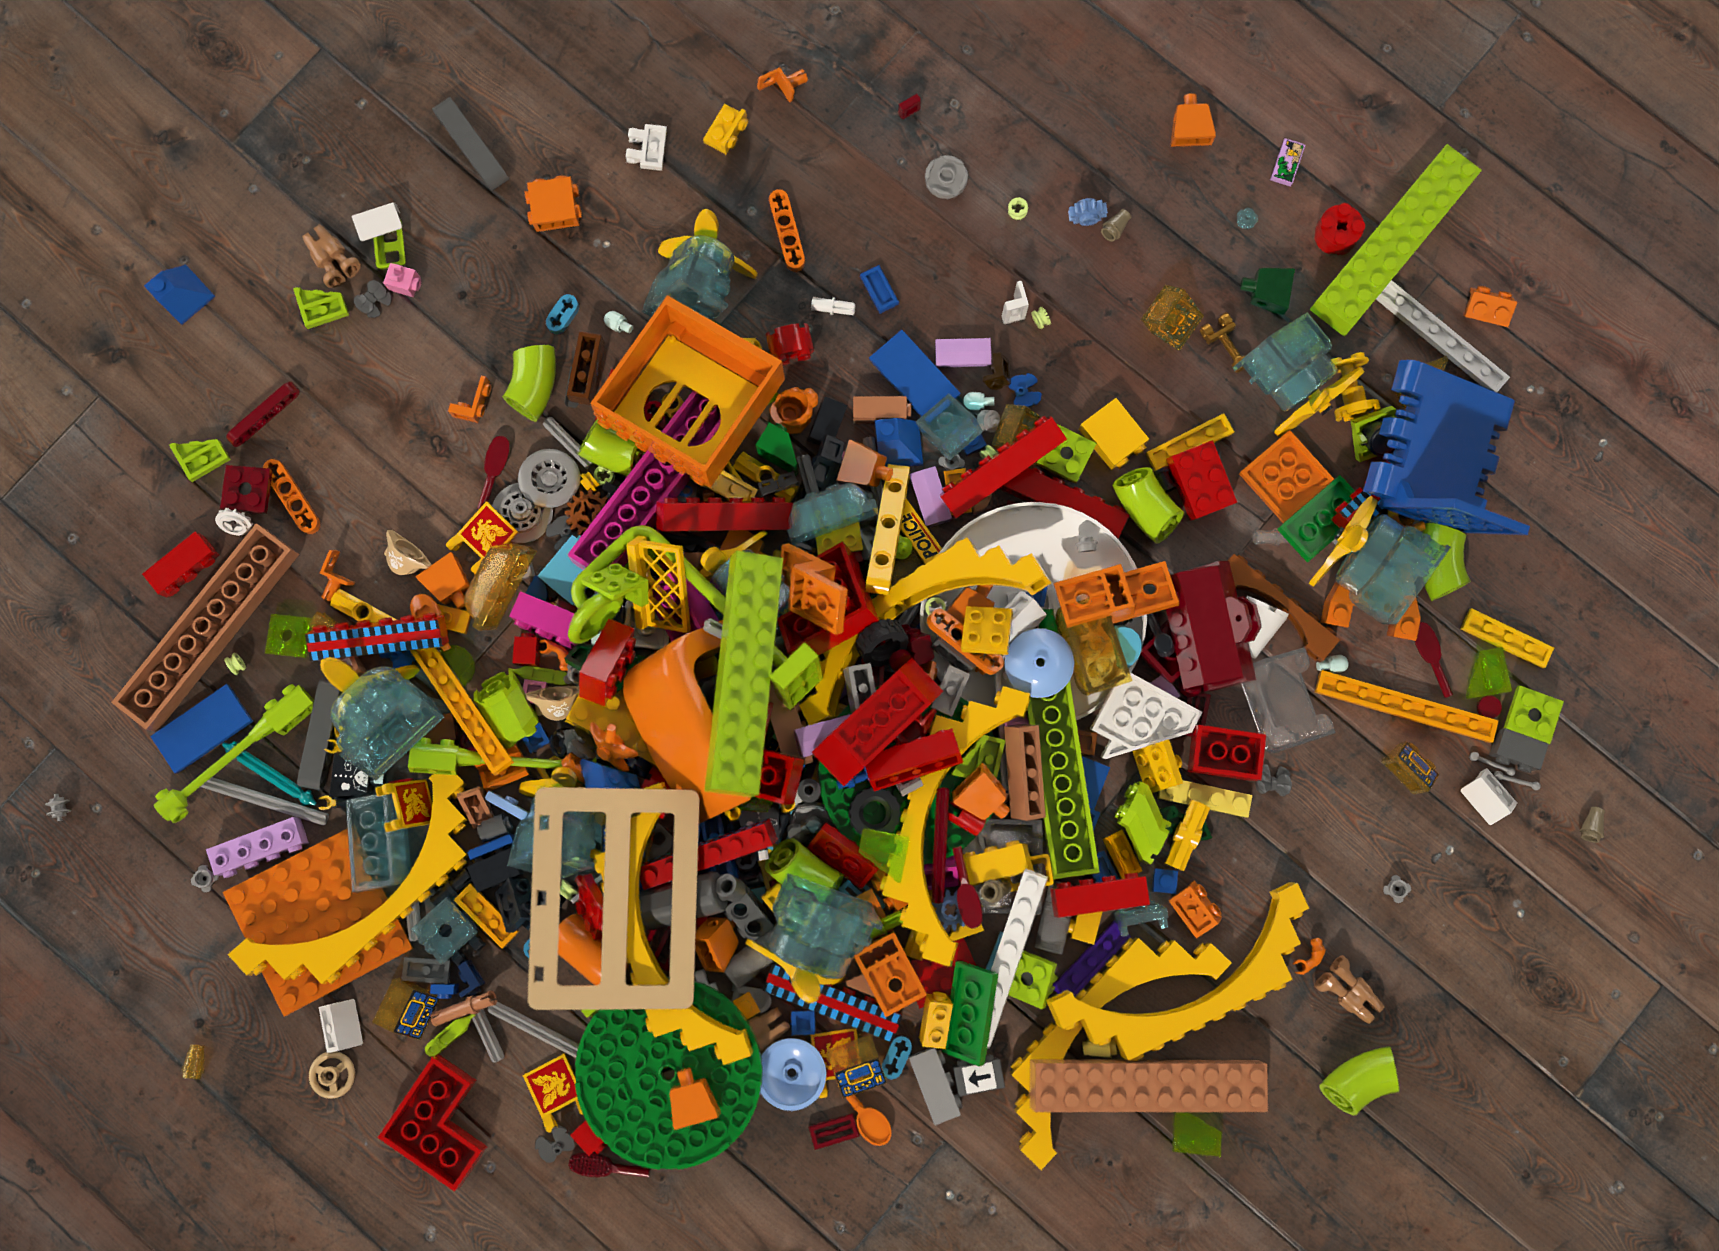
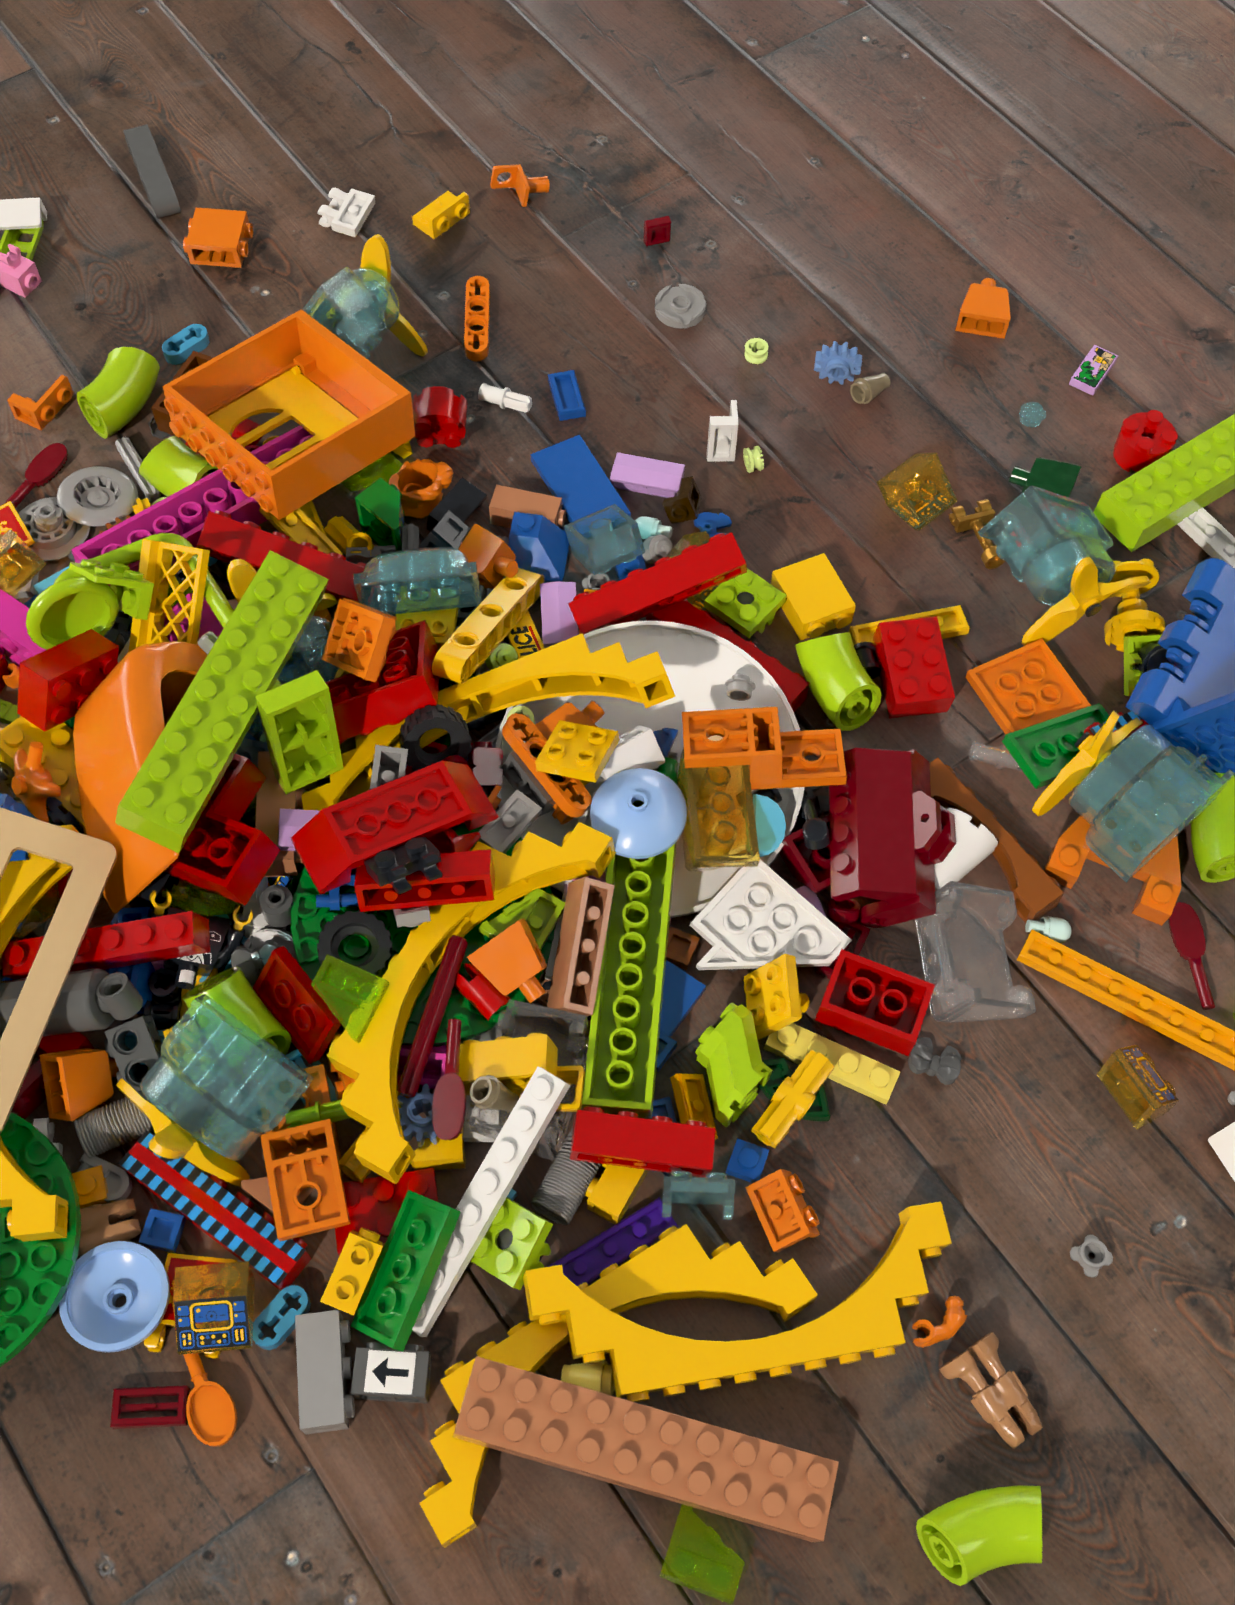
camera: 10 degrees right, 20 degrees down
(896, 754) = (395, 864): none -> black plate

